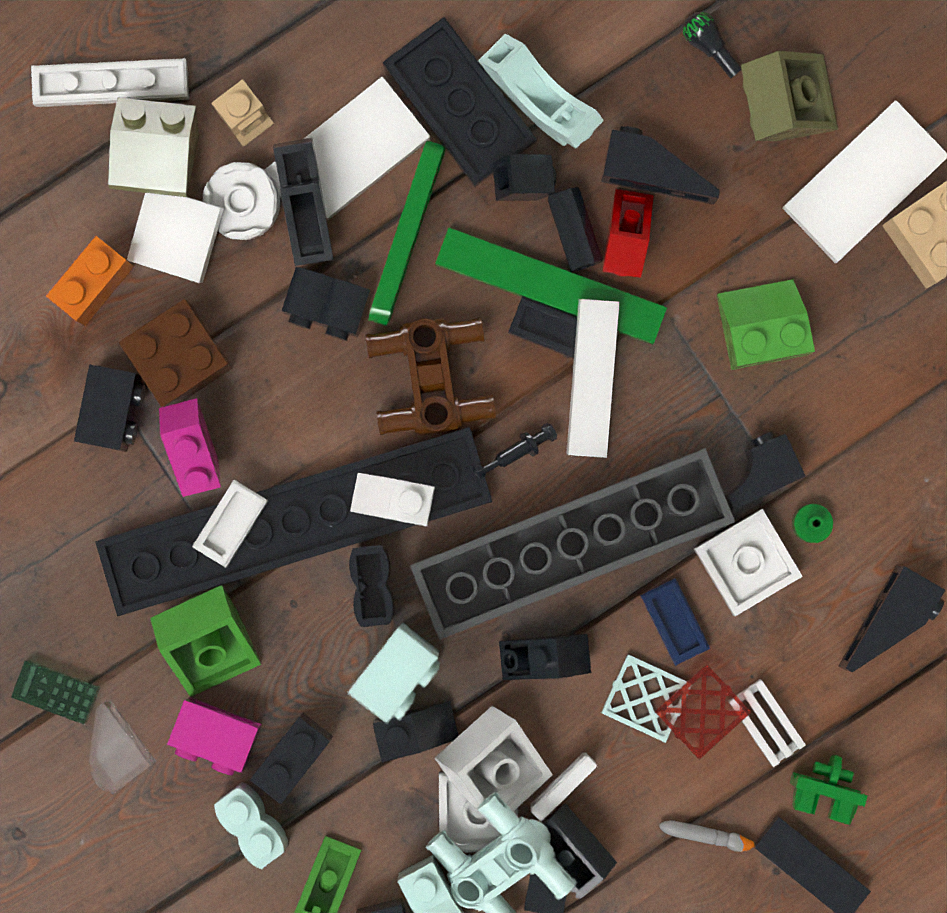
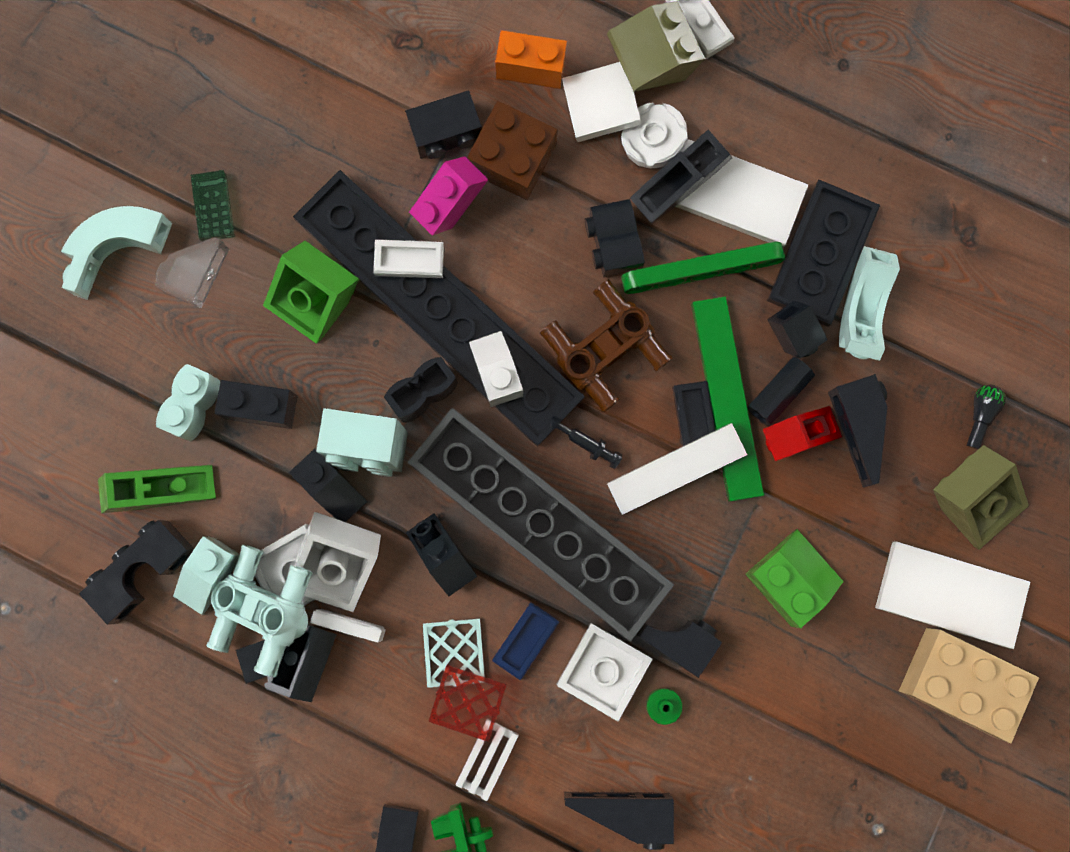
camera: 60 degrees right, 5 degrees down
(25, 816) = (105, 234): none -> light aqua arch
(214, 736) = (241, 337): dark pink brick -> none
(242, 112) = (720, 98): tan window -> none
(706, 835) = (372, 762): light grey piece -> none

